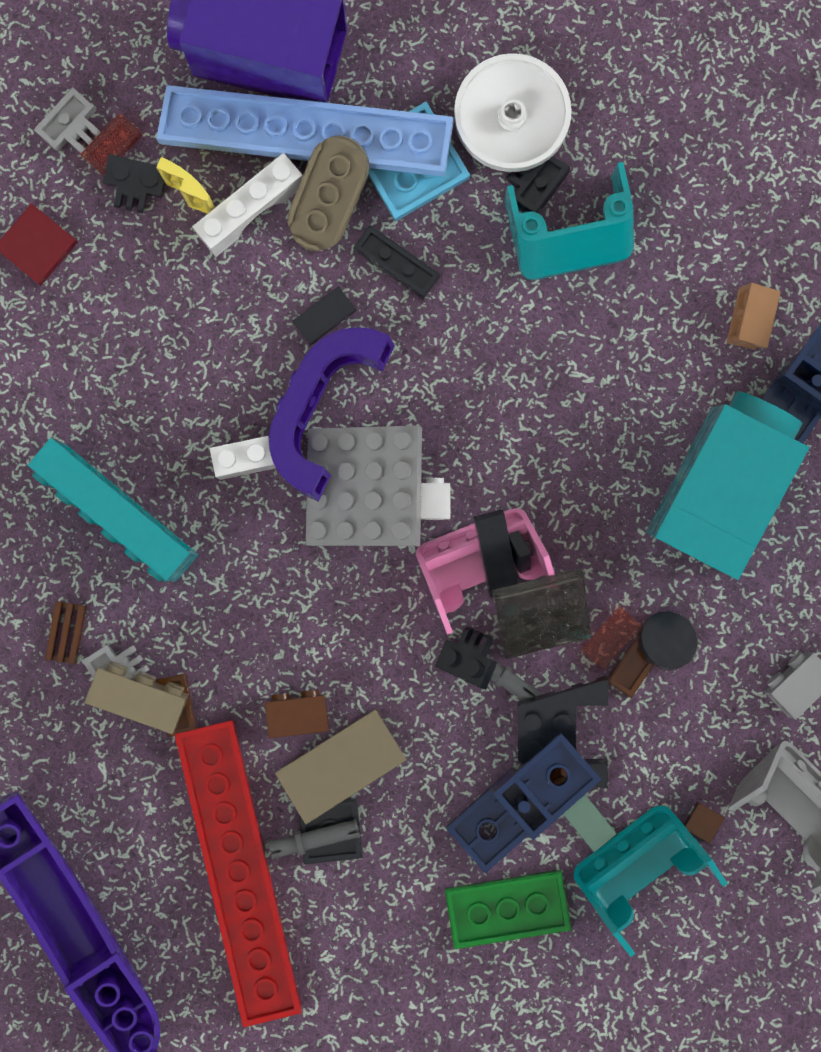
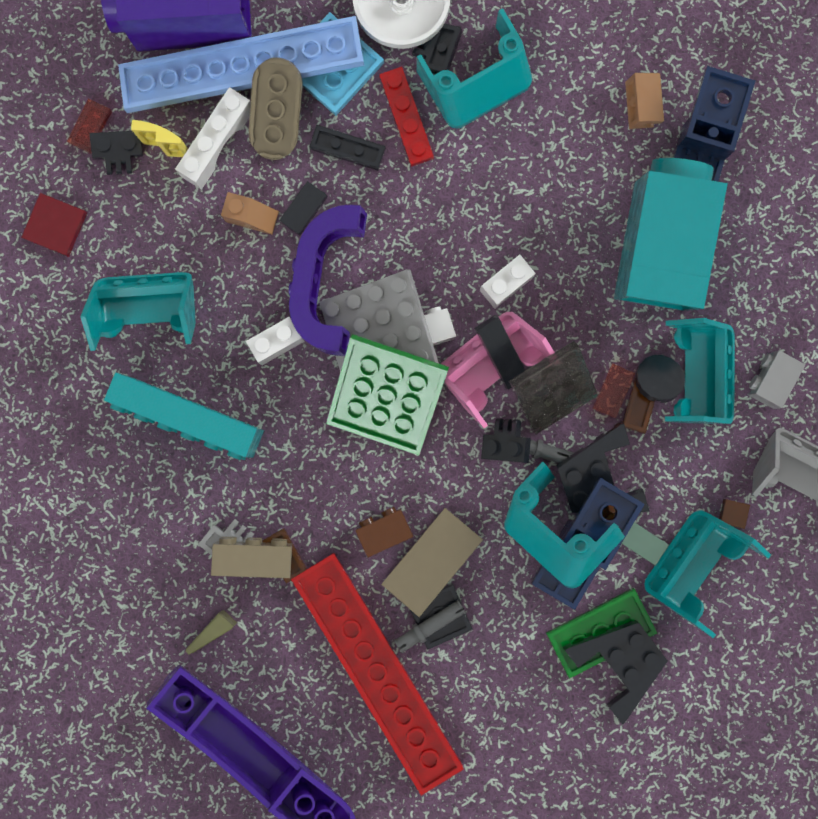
camera: 15 degrees left, 0 degrees up
(50, 652) = (168, 529): reddish brown tile -> none
(68, 122) = (49, 119): light grey hinge -> none
(73, 762) = (218, 626): none -> olive slope
(105, 362) = (139, 301): none -> teal windscreen
(260, 303) = (249, 213): none -> medium nougat slope
(349, 560) = (386, 394): none -> plate
(475, 248) = (406, 116): none -> red plate
(492, 817) = (566, 562): none -> teal windscreen
(521, 552) = (521, 344): black plate -> none
(529, 474) = (507, 281): none -> white brick
(532, 948) = (631, 657): none -> black wing
(725, 651) = (708, 371): none -> teal windscreen

